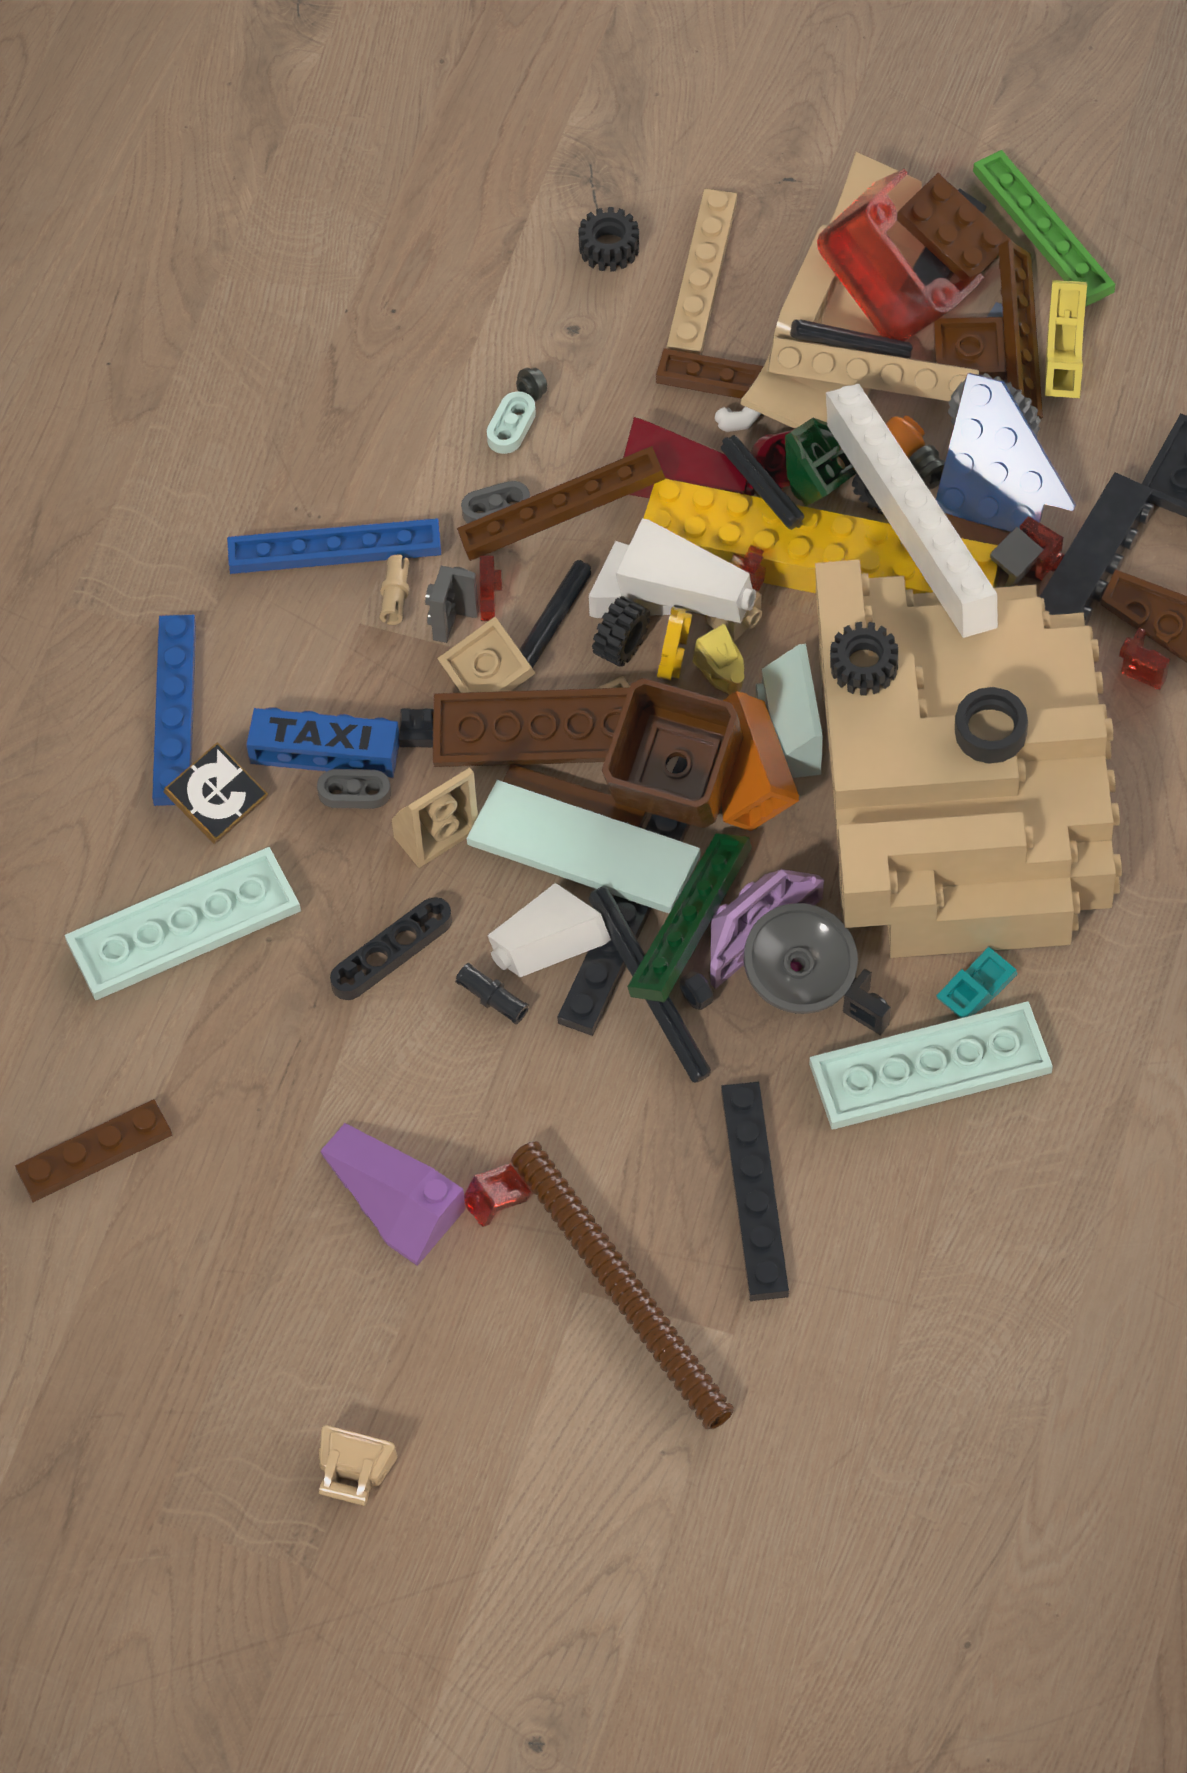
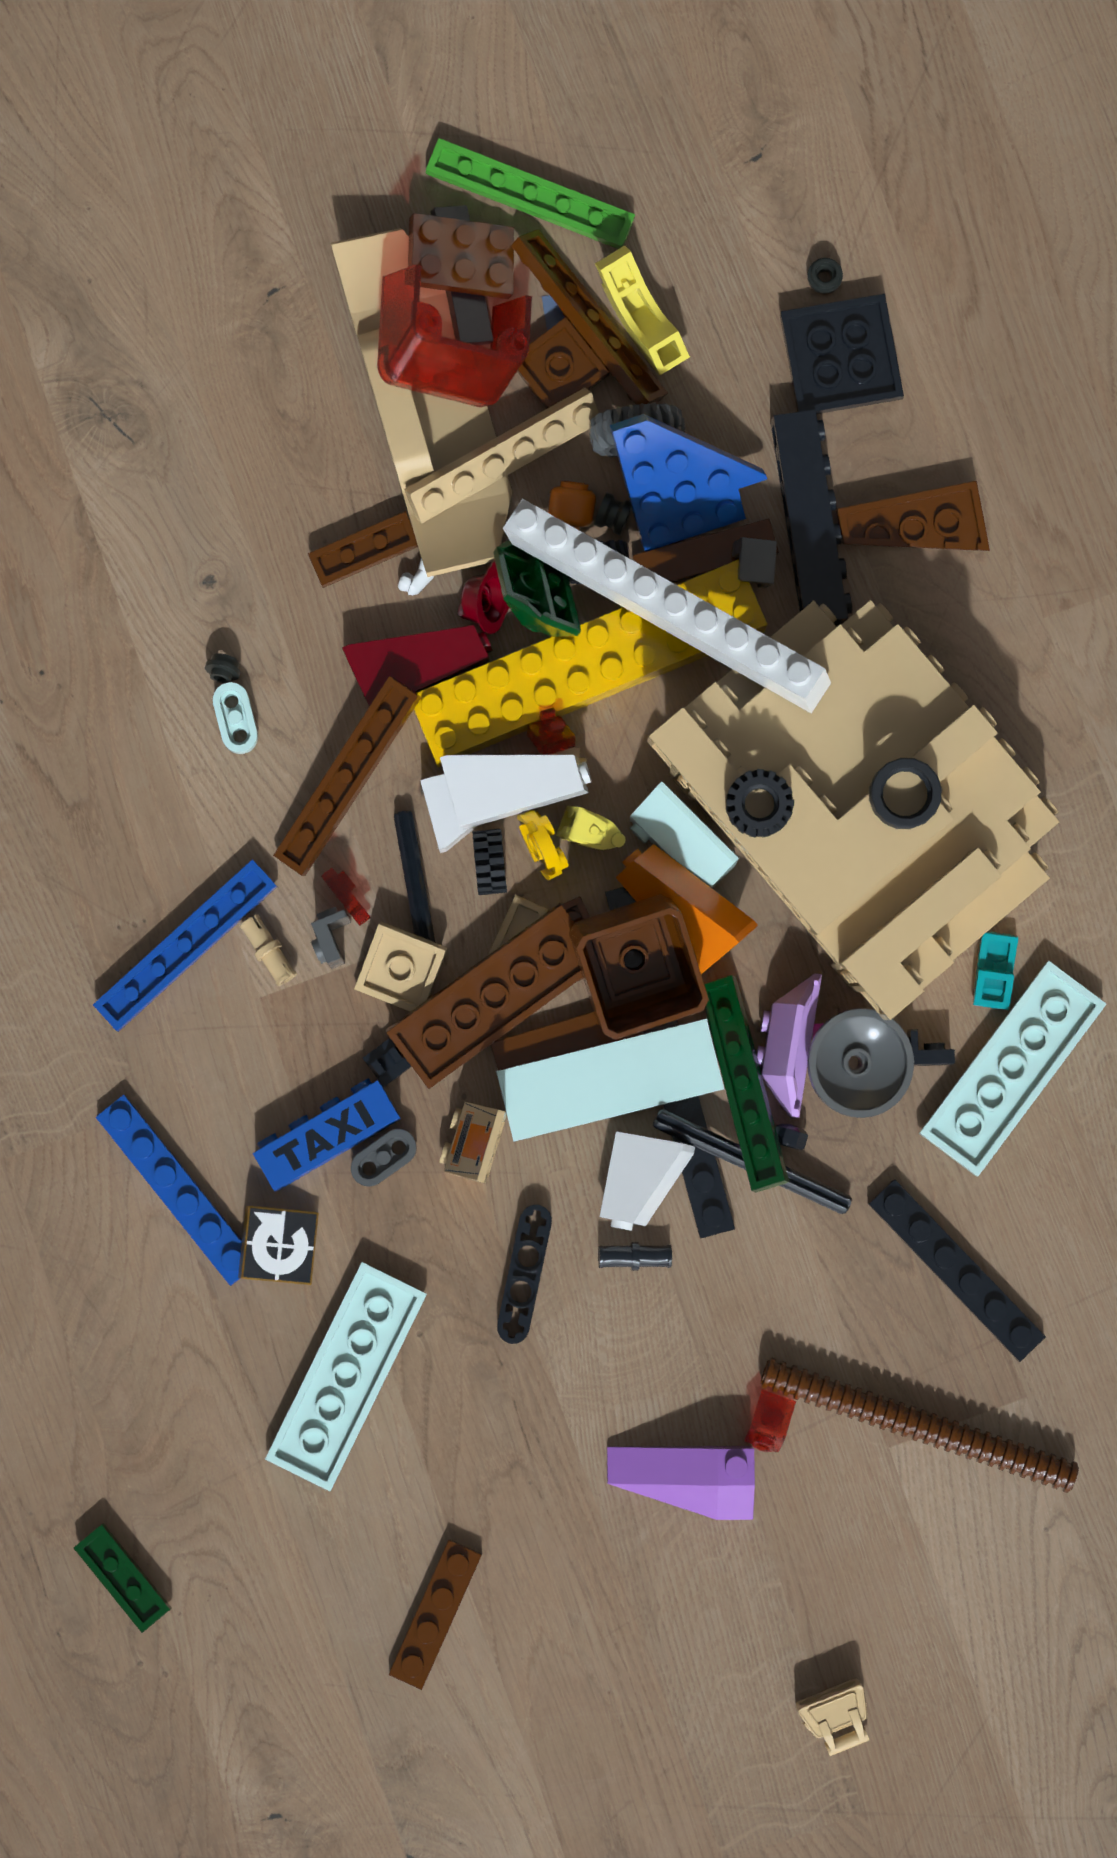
camera: 40 degrees left, 25 degrees up
(492, 499) = (283, 806): dark grey plate -> none
(608, 224) = (172, 450): black tyre -> none
(702, 271) = (276, 446): tan plate -> none
(762, 482) = (504, 643): black axle -> none
(849, 339) = (465, 440): black axle -> none
(1047, 540) = (767, 528): clear red bracket -> none
(1143, 664) = (923, 580): clear red bracket -> none

